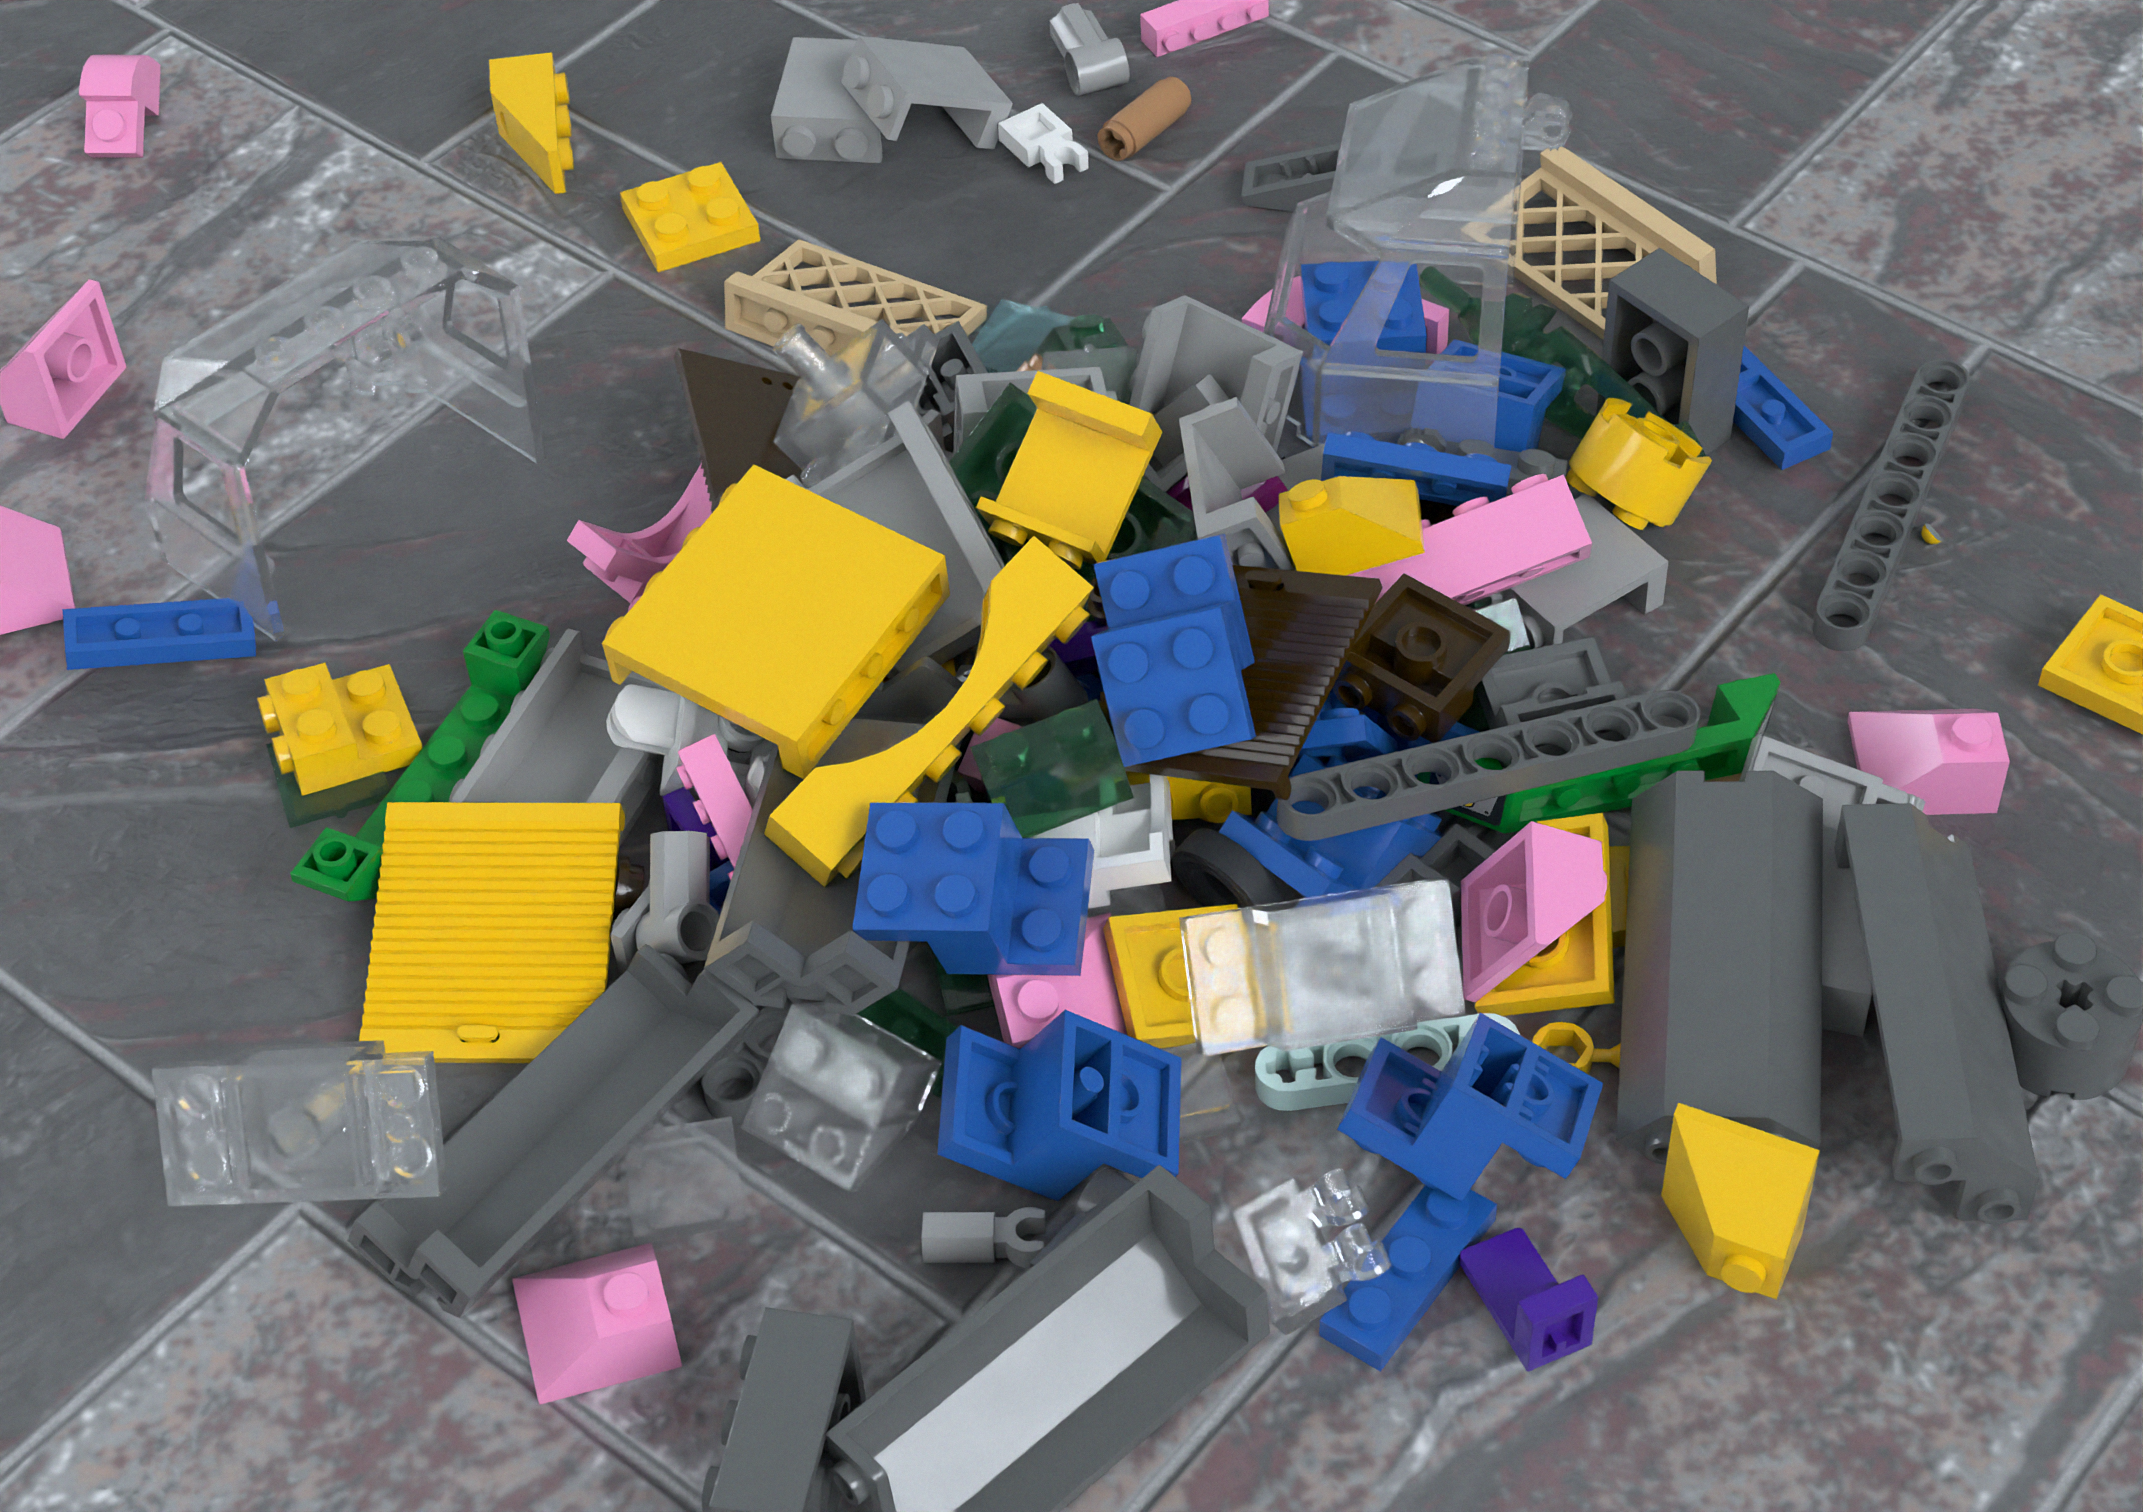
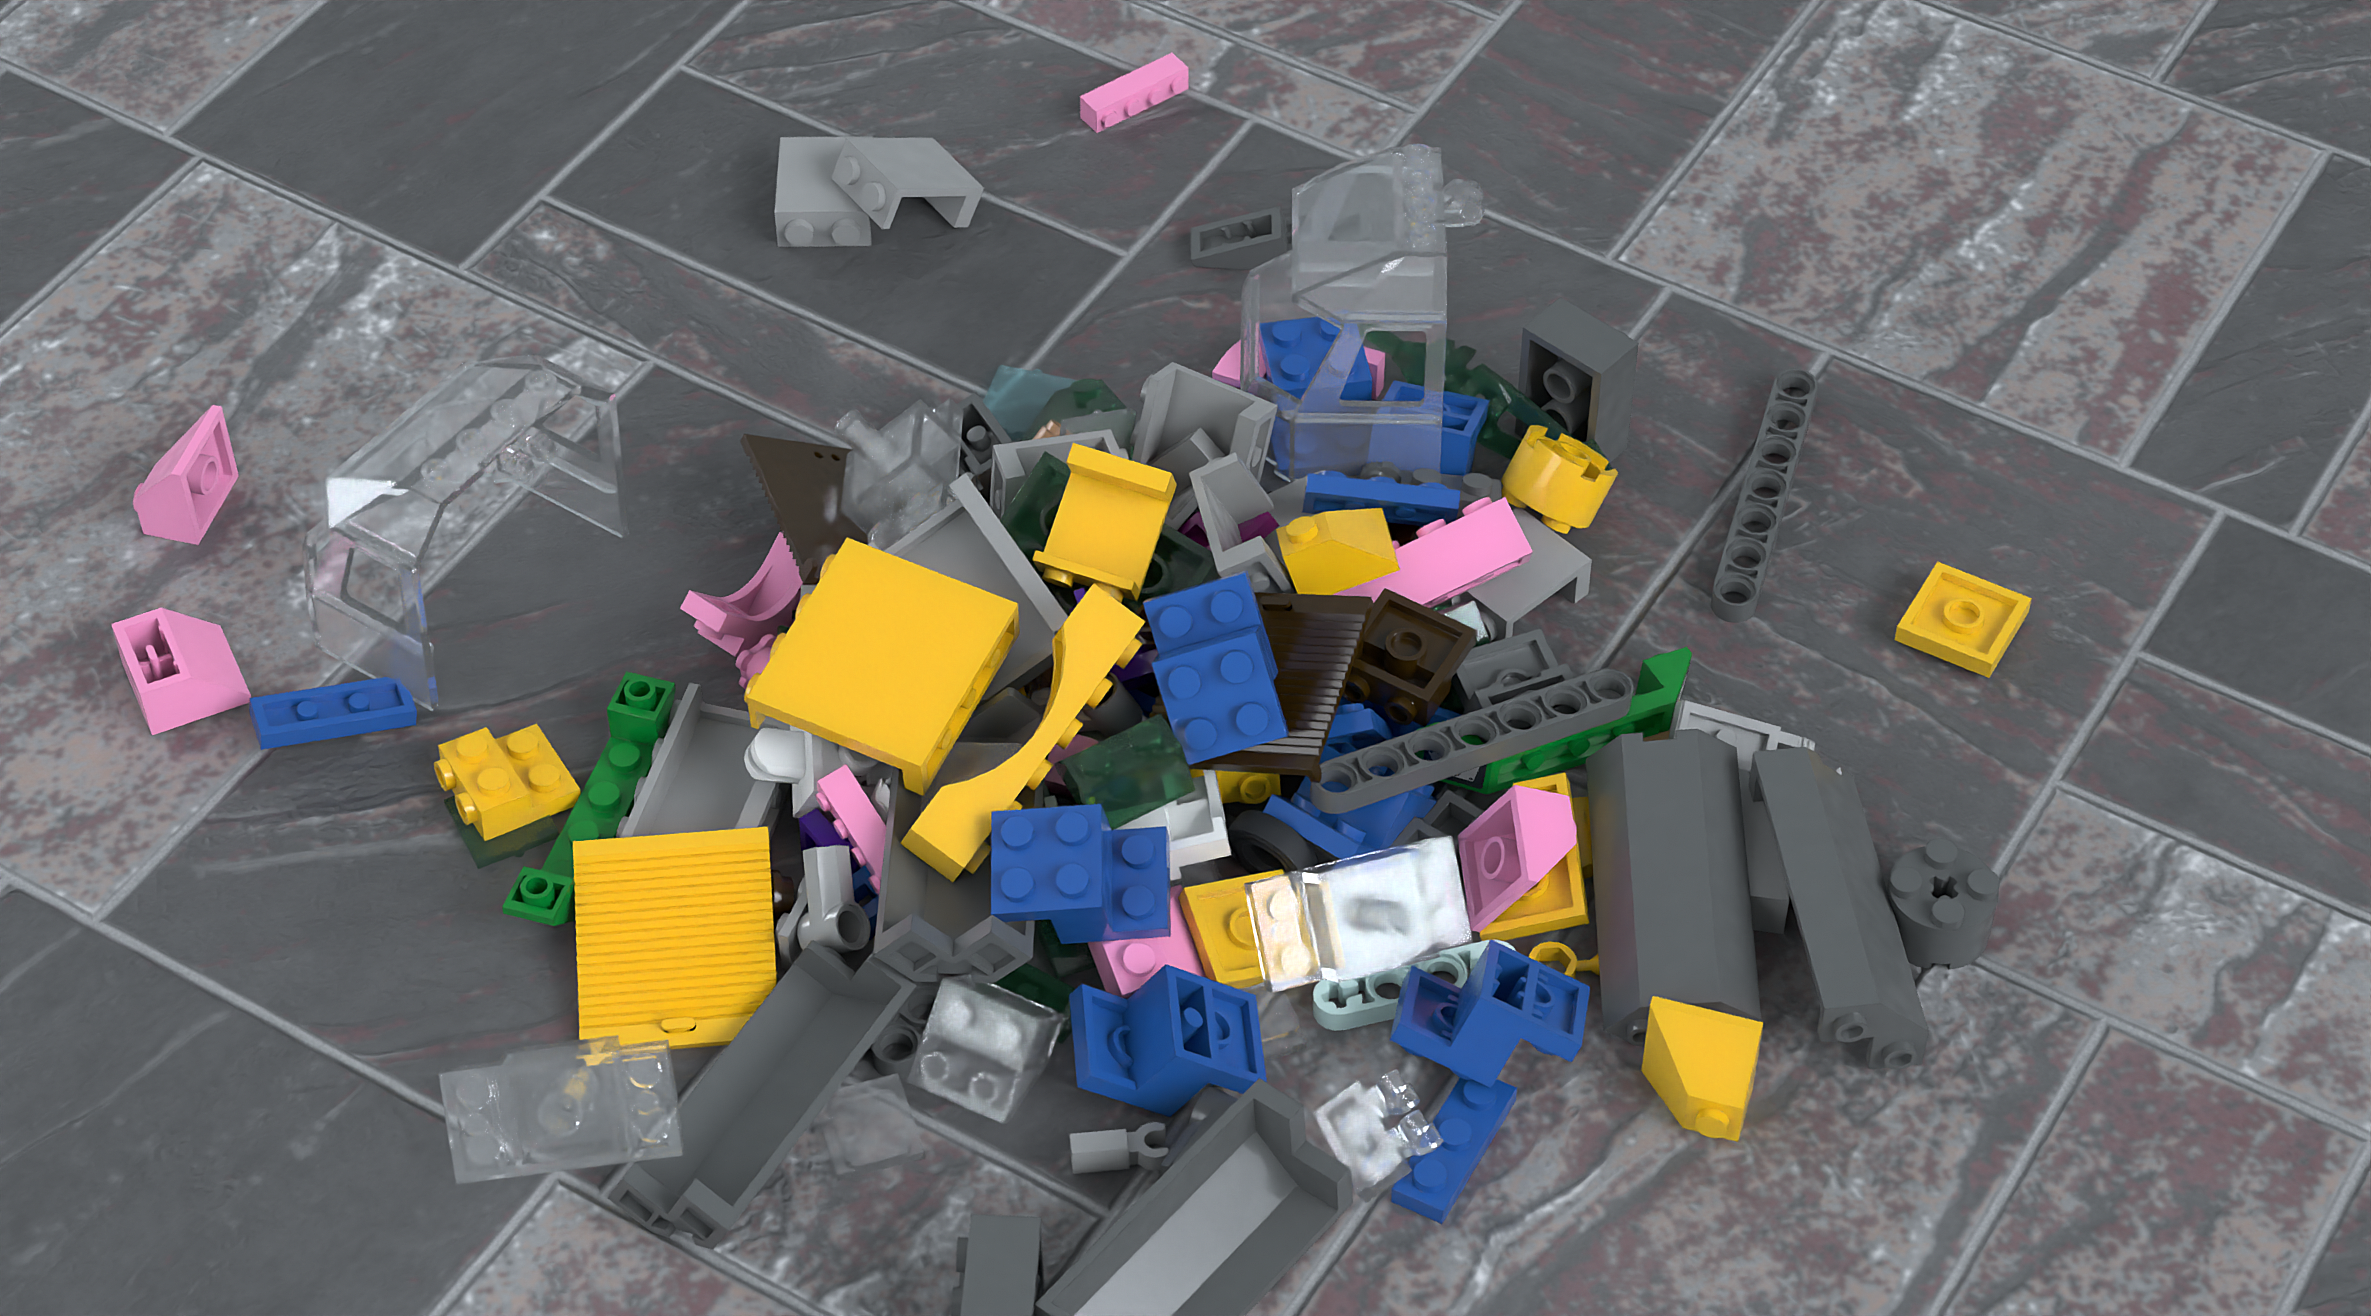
camera: 10 degrees left, 0 degrees up
(117, 98) = (179, 229): bright pink brick -> none
(534, 114) = (553, 221): yellow slope -> none
(596, 1323) = (823, 1242): bright pink slope -> none
(689, 216) = (713, 306): yellow plate -> none
(765, 310) = (830, 393): tan fence -> none
(1044, 138) = (1012, 216): white plate -> none
(1088, 54) = (1040, 137): light grey piece -> none
(1144, 118) = (1097, 192): medium nougat piece -> none
(1527, 1302) = (1552, 1164): dark purple bracket -> none
(1619, 221) = (1522, 266): tan fence -> none
(1776, 416) = (1664, 428): blue plate -> none
(1930, 535) = (1797, 520): yellow piece -> none
(1939, 755) = (1818, 703): bright pink slope -> none

